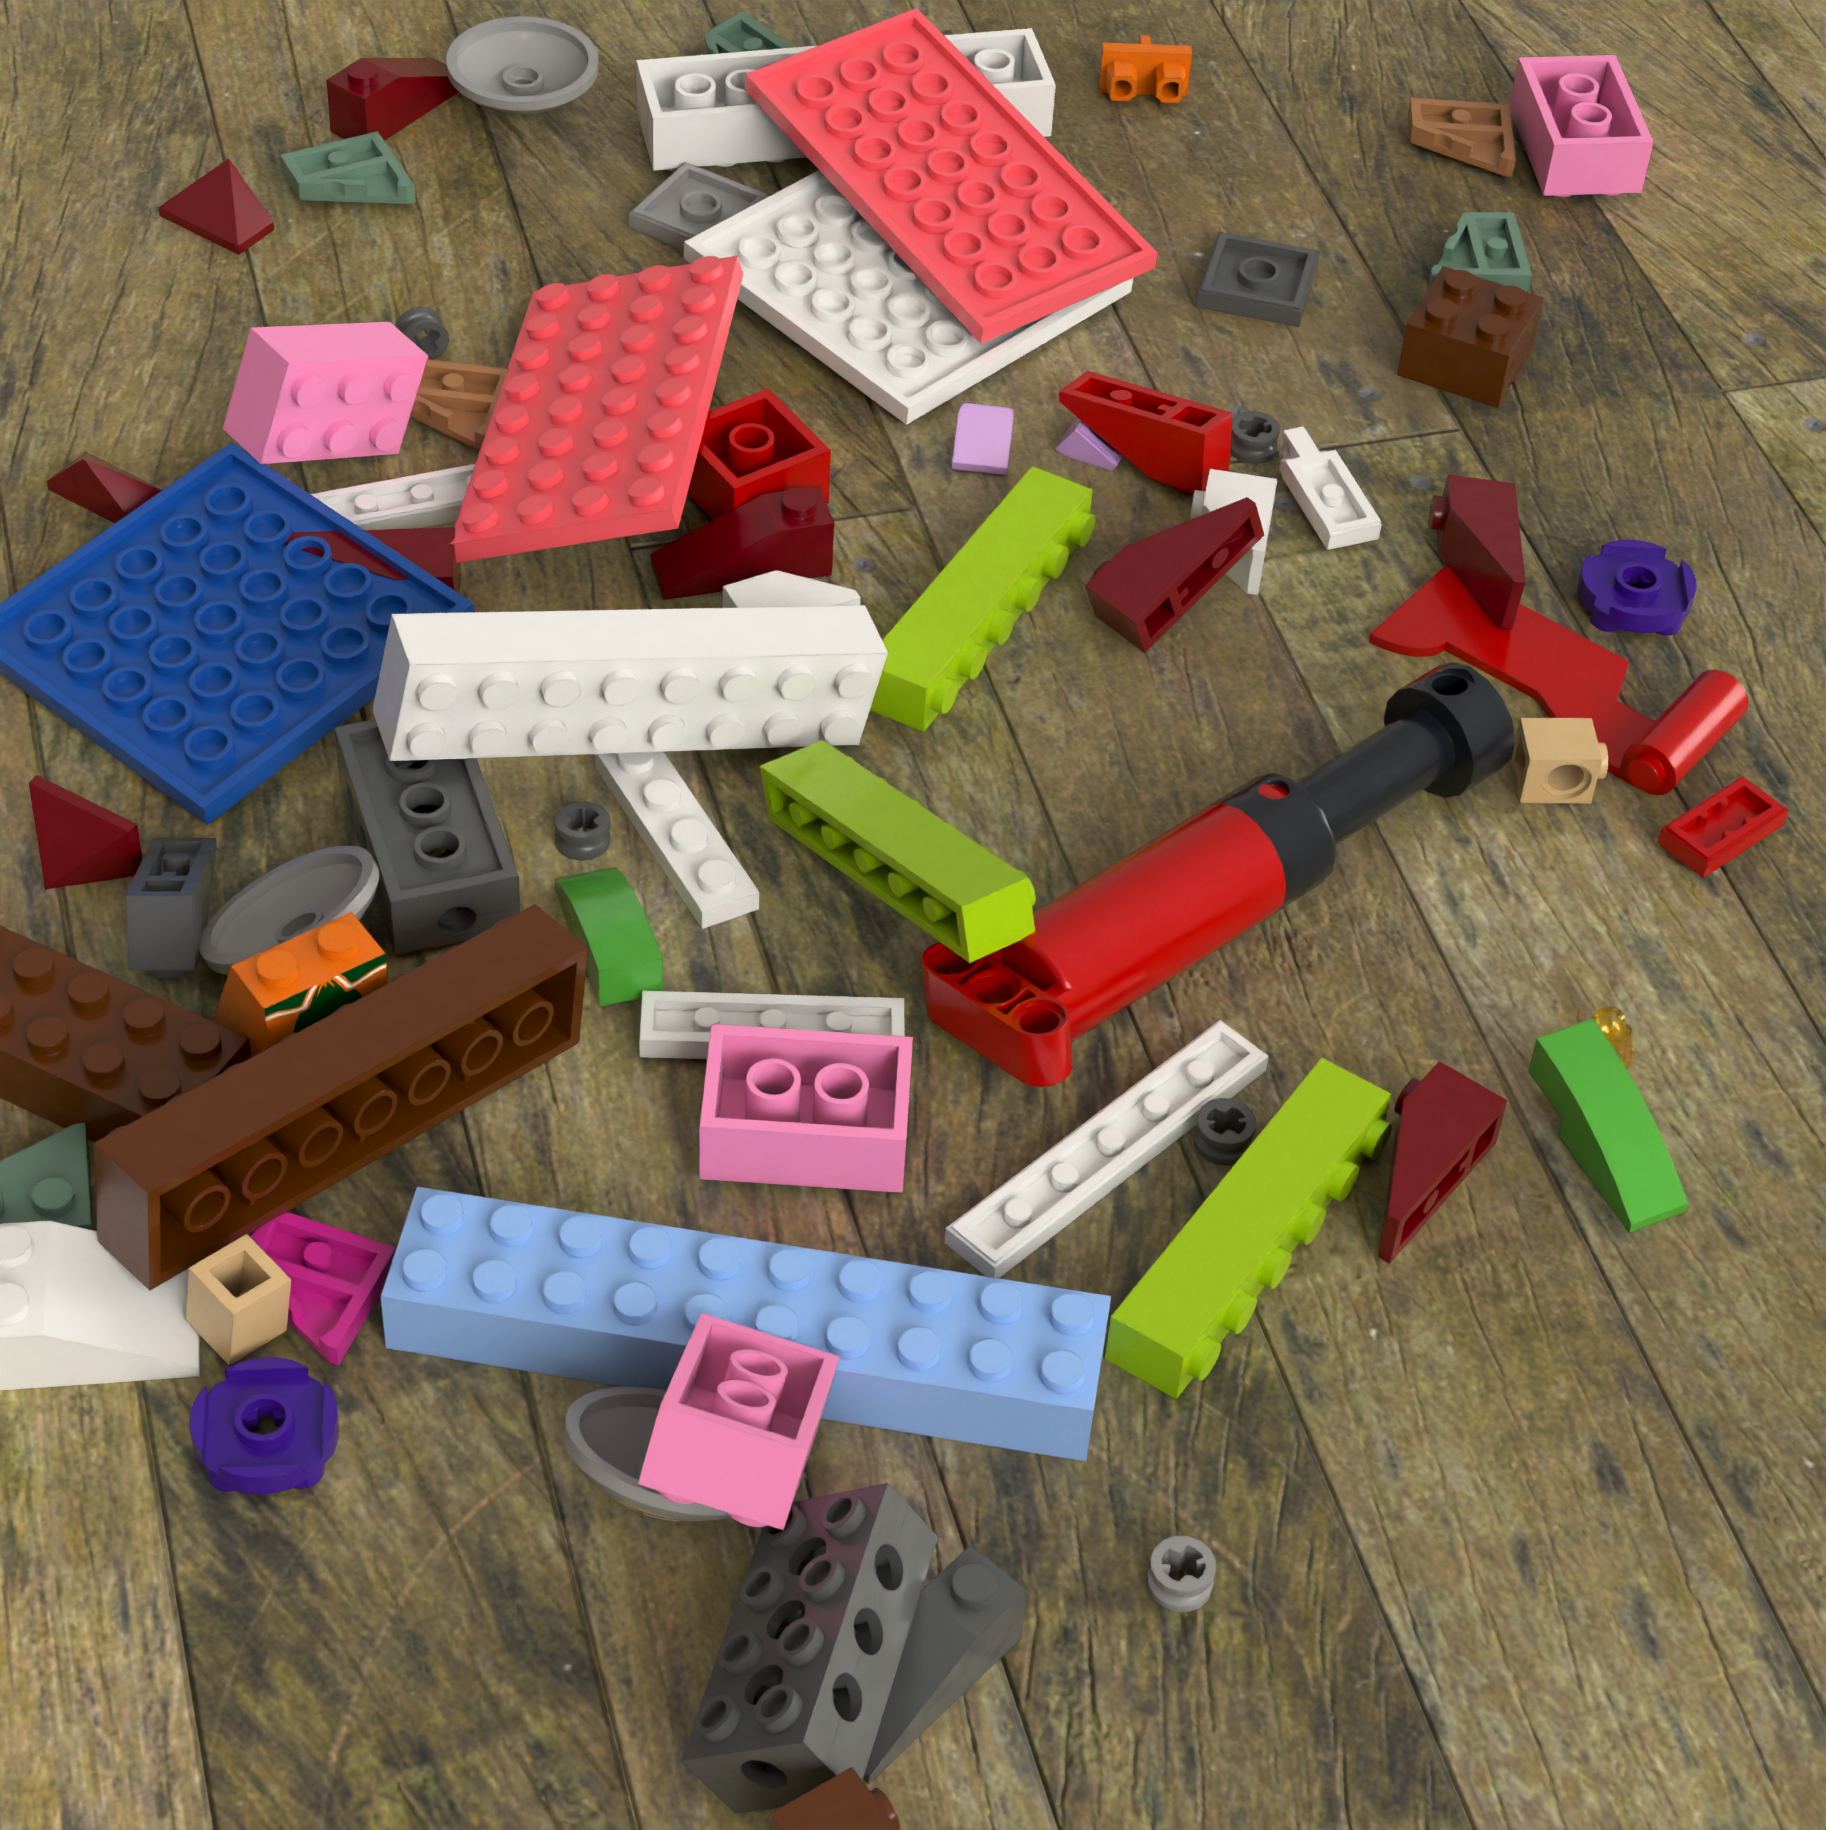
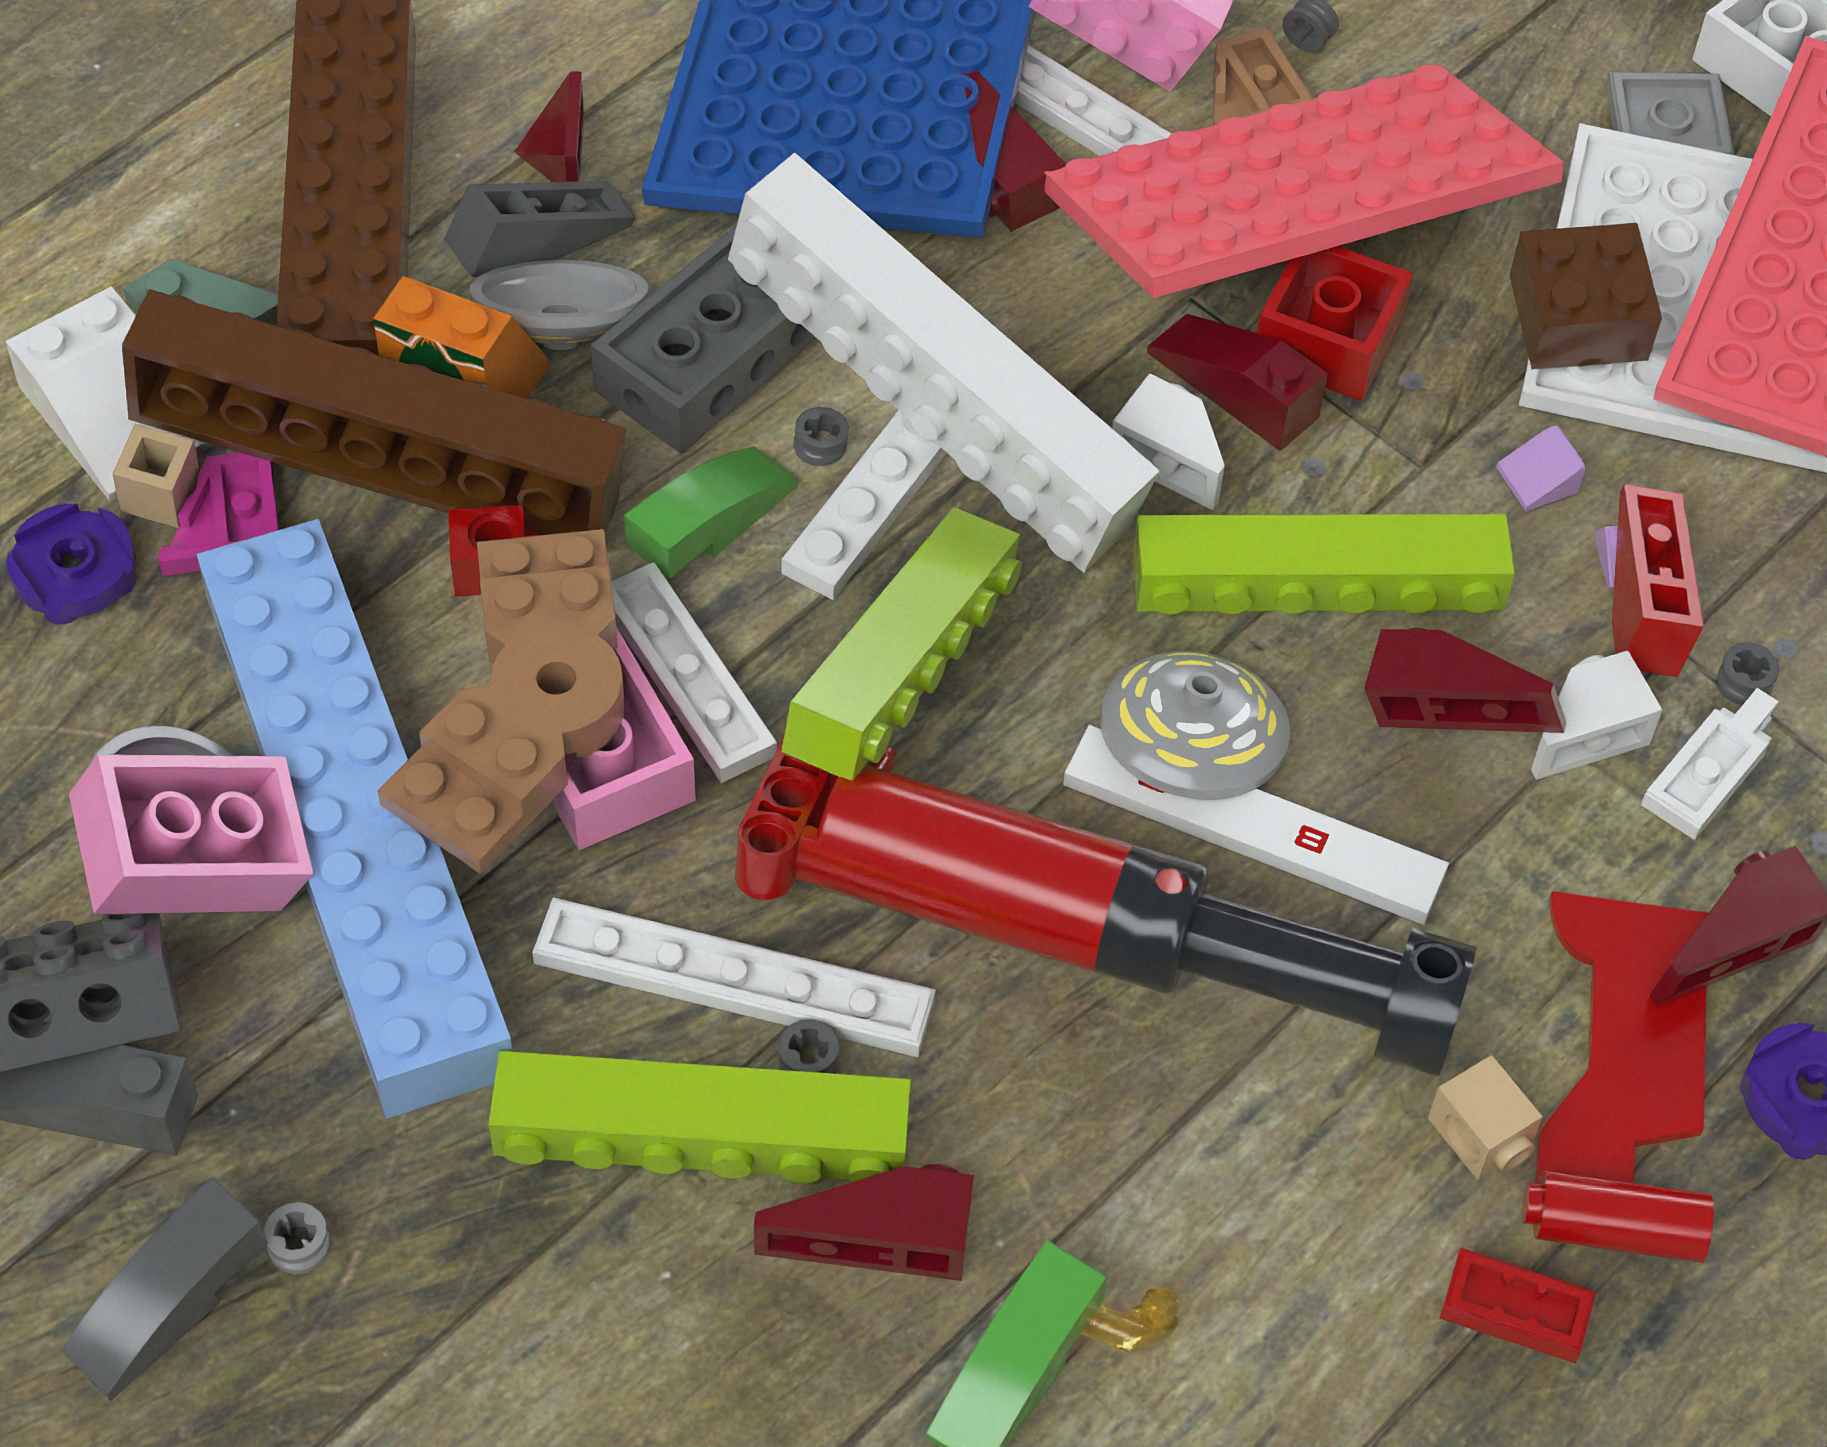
camera: 60 degrees right, 10 degrees up
(529, 1100) = (475, 526): none -> red brick
(786, 1081) = (502, 746): none -> medium nougat plate
(868, 316) = (1585, 296): none -> reddish brown brick
(1075, 744) = (1195, 725): none -> light grey dish
(1187, 762) = (1273, 833): none -> white tile
(1187, 1688) = (165, 1288): none -> dark grey slope

